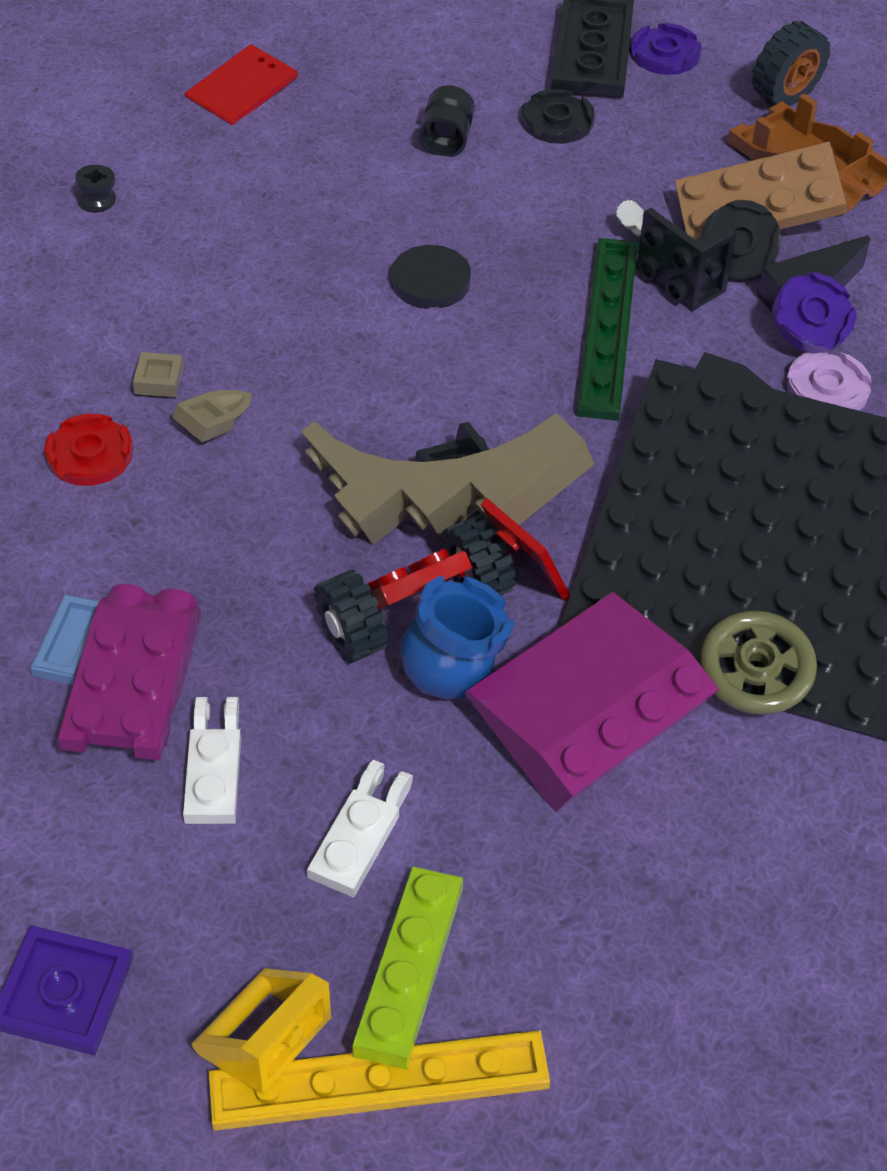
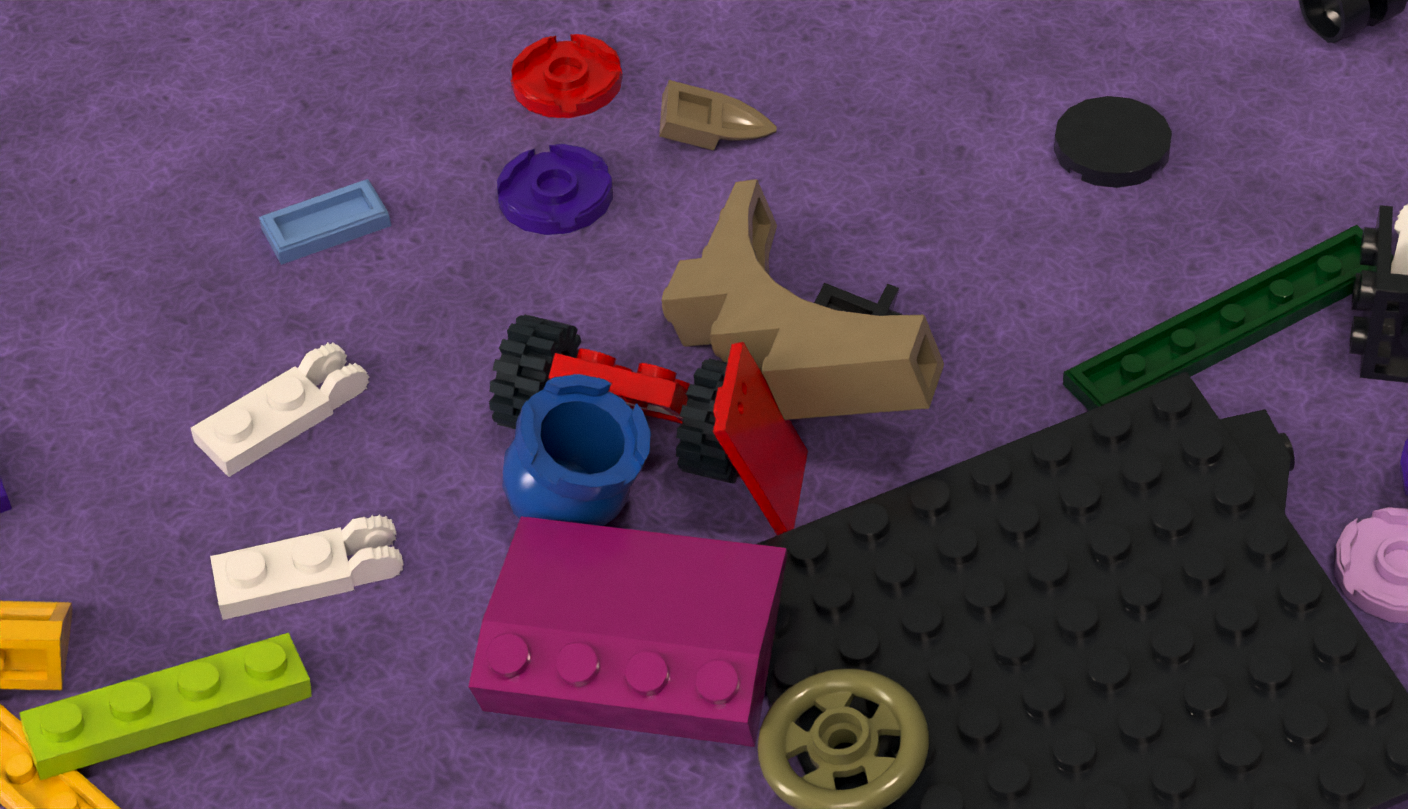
camera: 55 degrees right, 5 degrees down
(131, 671) = (309, 276): magenta piece -> none
(158, 374) = (711, 50): dark tan plate -> none
(184, 528) = (556, 204): none -> dark purple tile

